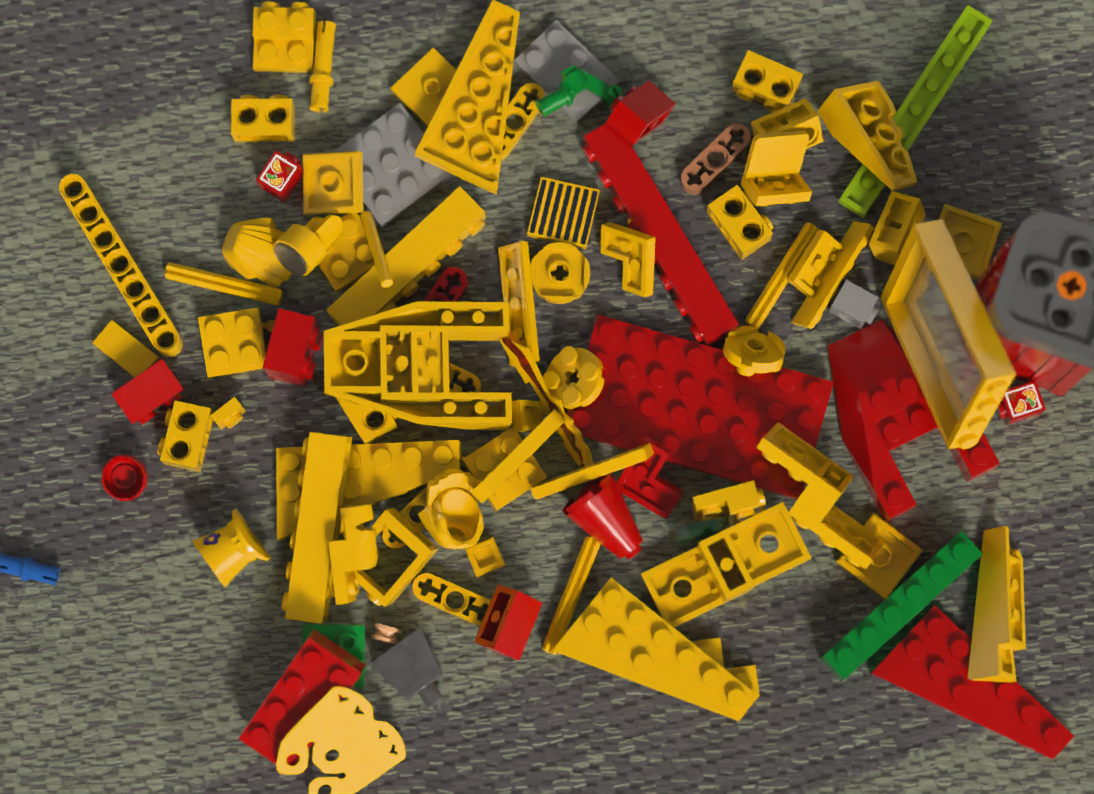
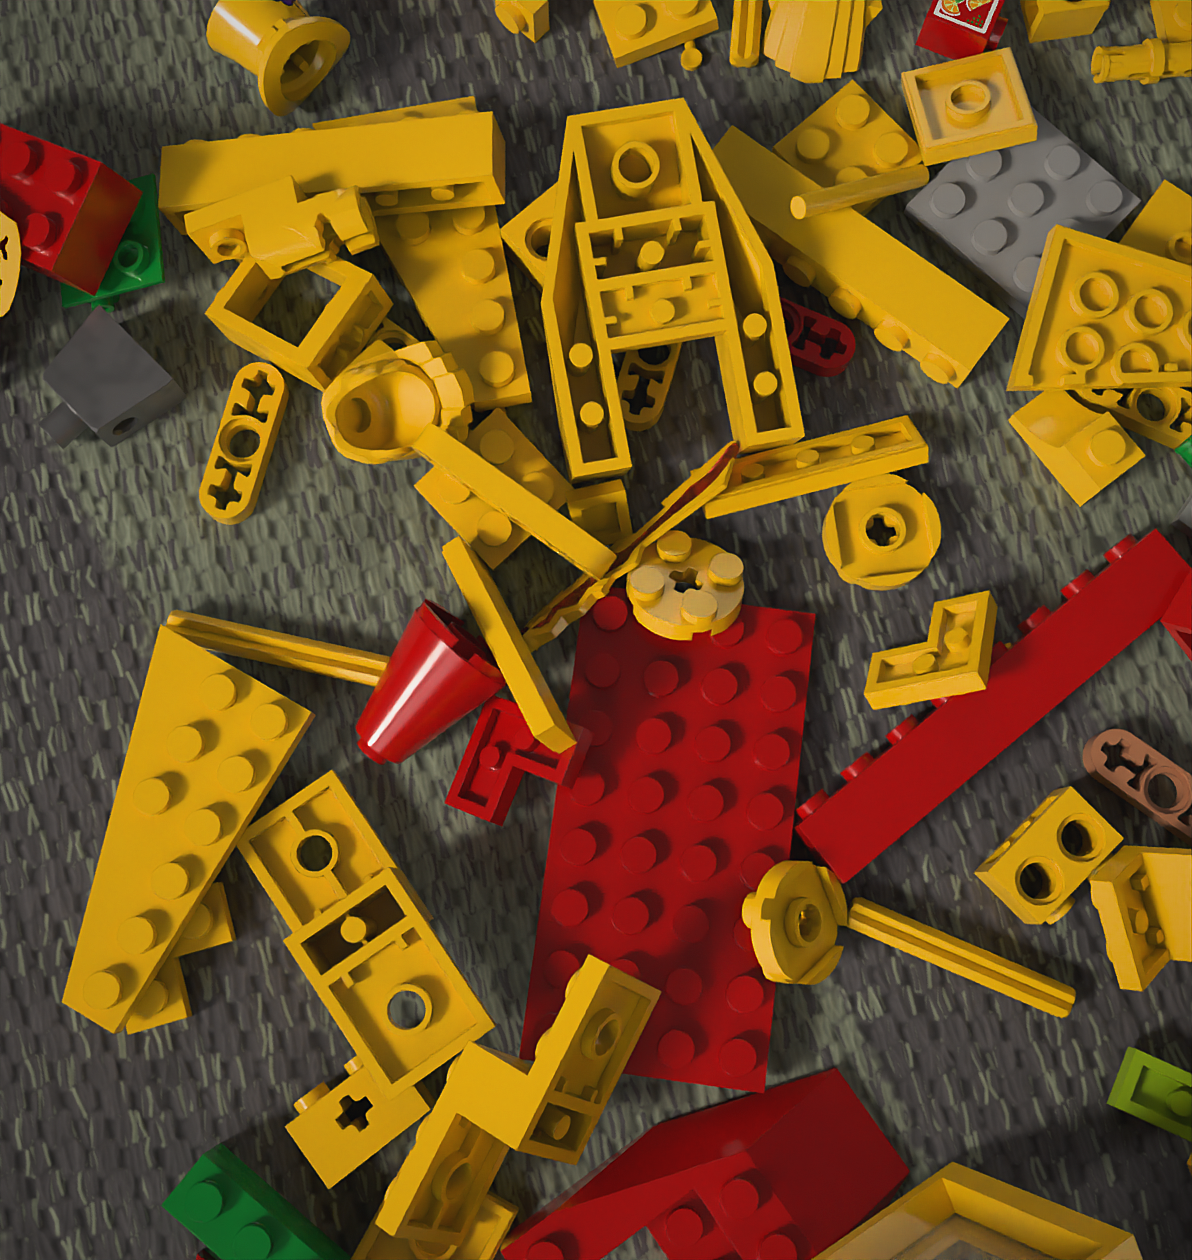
camera: 75 degrees right, 0 degrees up
(293, 348) = (652, 62): red brick -> none
(305, 246) = (835, 69): yellow piece -> none
(386, 634) = (165, 332): light nougat bush -> none
(485, 557) = (330, 484): yellow tile -> none
(508, 622) = (205, 537): red brick -> none
(529, 164) = (1075, 443): none -> yellow arch
(563, 212) = (997, 523): tile -> none
(698, 530) = (424, 866): clear green tile -> none
(736, 502) = (487, 935): yellow plate -> none
(824, 268) = (989, 1039): yellow bracket -> none
(830, 591) = (337, 1144): none -> yellow brick
(855, 305) = (927, 1113): light grey brick -> none
(895, 226) = (1105, 1179): yellow brick -> none

